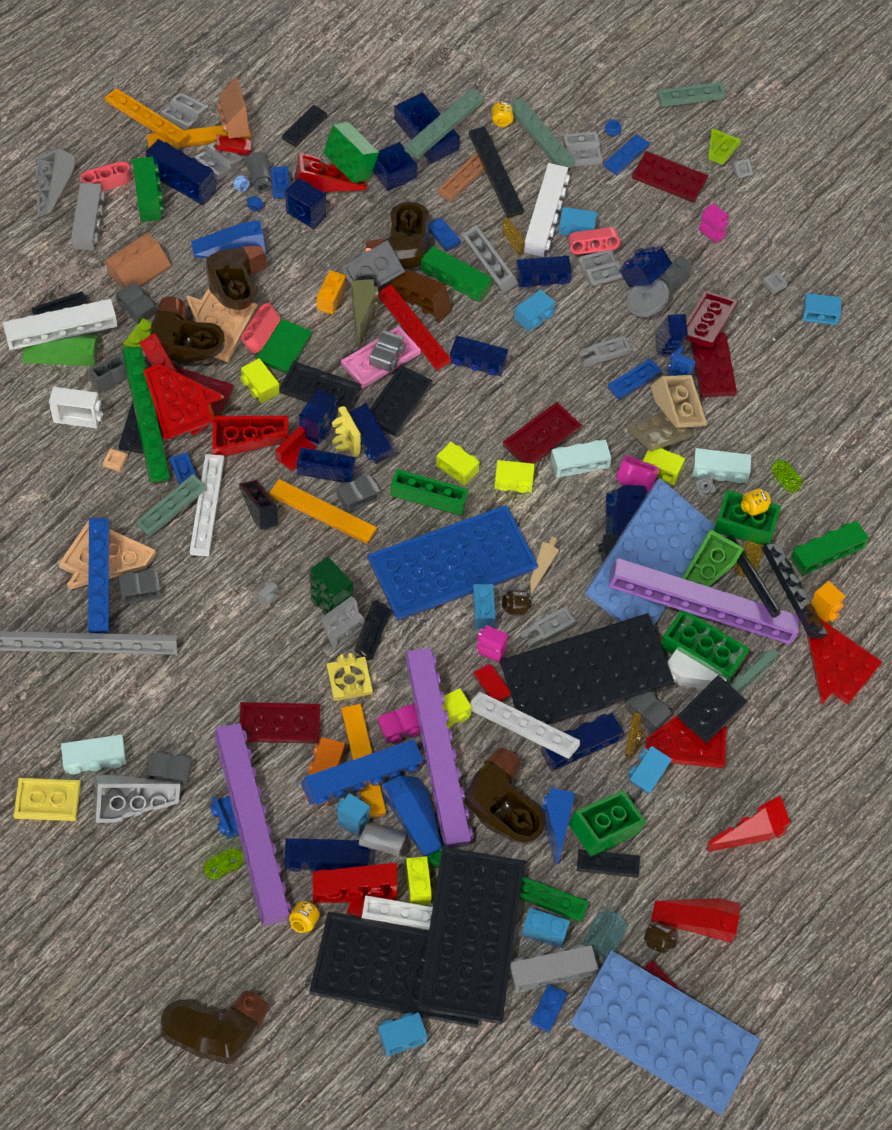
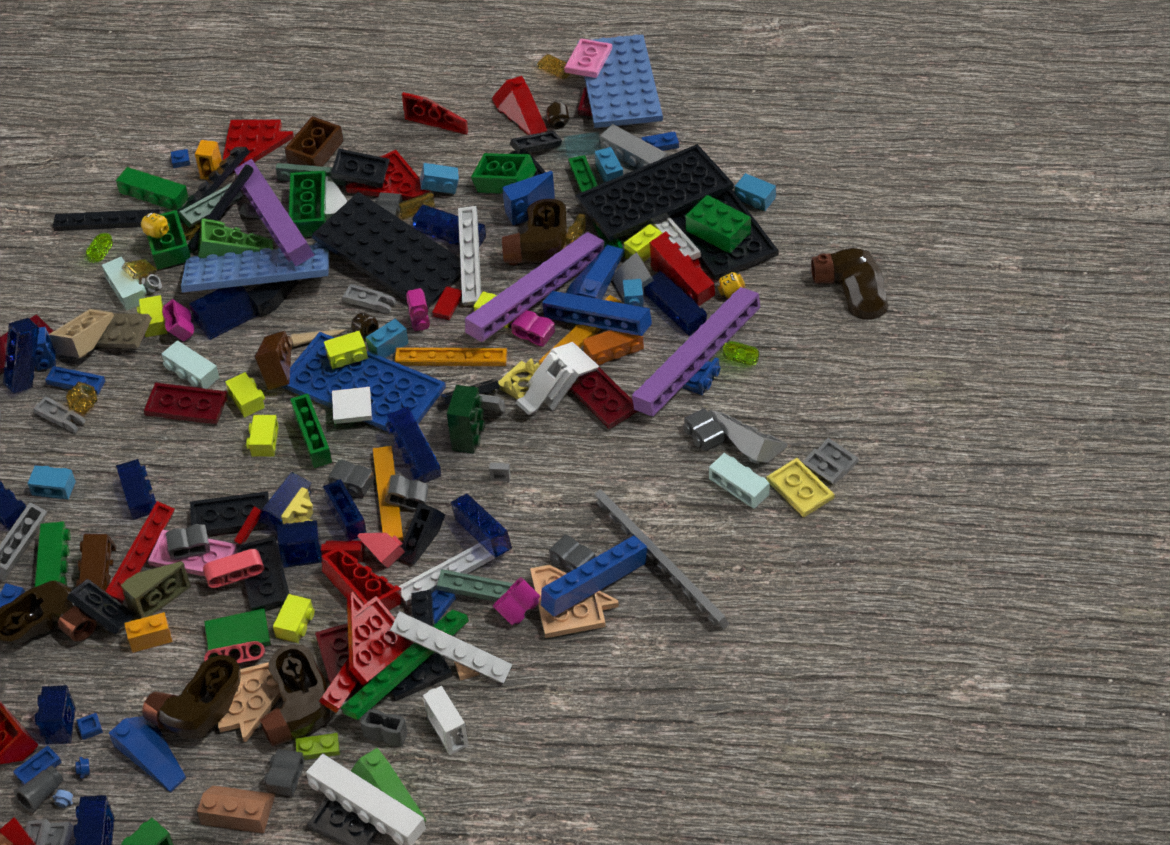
camera: 120 degrees left, 10 degrees down
(48, 842) = (831, 461): none -> light grey slope
(127, 444) = (451, 647): none -> white plate
(130, 515) = (517, 601): none -> dark pink brick
(176, 449) = (423, 607): none -> black plate
(220, 538) = (481, 525): none -> clear blue brick
(269, 468) = (383, 546): none -> coral slope
(288, 226) = (89, 726): none -> blue tile
(305, 515) = (405, 492): none -> dark grey brick
(316, 695) = (555, 377): none -> white piece
(334, 364) = (233, 568): none -> coral beam
(346, 548) = (413, 445): none -> clear blue brick
(367, 396) = (248, 526): none -> red tile
(379, 953) = (718, 224): none -> green brick
(430, 534) = (352, 405): none -> white tile
(434, 639) = (451, 356): none -> light orange tile
(485, 837) = (576, 230): none -> clear yellow plate
(491, 563) = (345, 349): none -> neon yellow brick
(529, 510) = (275, 359): none -> reddish brown wedge
(602, 373) = (81, 397): none -> clear yellow brick
(632, 886) = (535, 142): none -> black plate
(715, 1018) = (588, 58): none -> bright pink tile
(724, 477) = (139, 268): none -> clear yellow plate
(740, 994) = (554, 66): none -> clear yellow plate
(765, 568) = (200, 210): none -> sand green plate
(783, 700) = (314, 143): none -> reddish brown brick
(819, 500) = (100, 220): none -> black plate
(860, 596) = (180, 158): none -> blue plate

